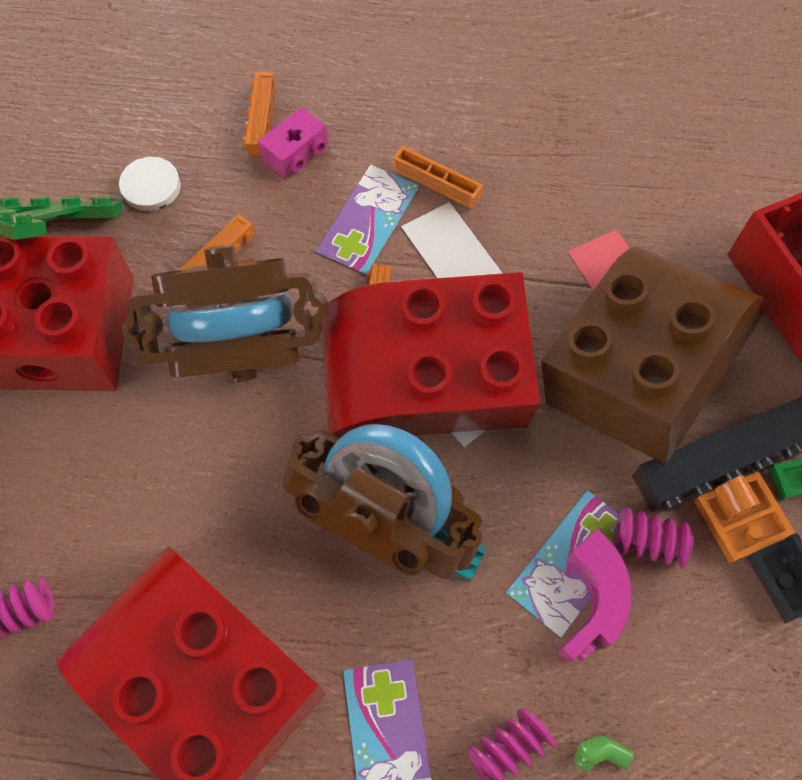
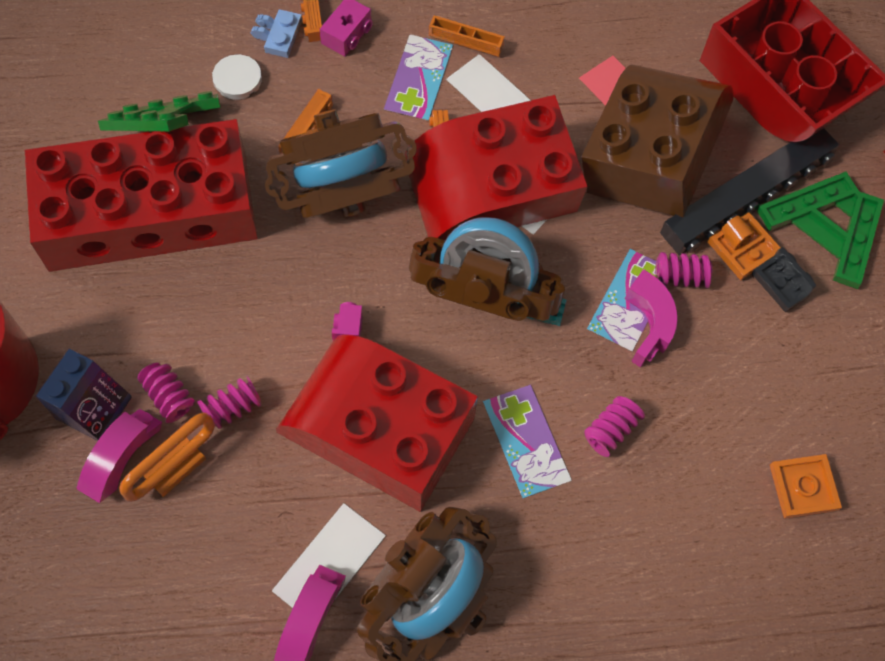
camera: 15 degrees left, 0 degrees up
(192, 528) = (348, 320): none -> dark pink brick
(218, 139) = (282, 33): none -> light blue hinge
(600, 749) = (676, 415): bright green arm -> none

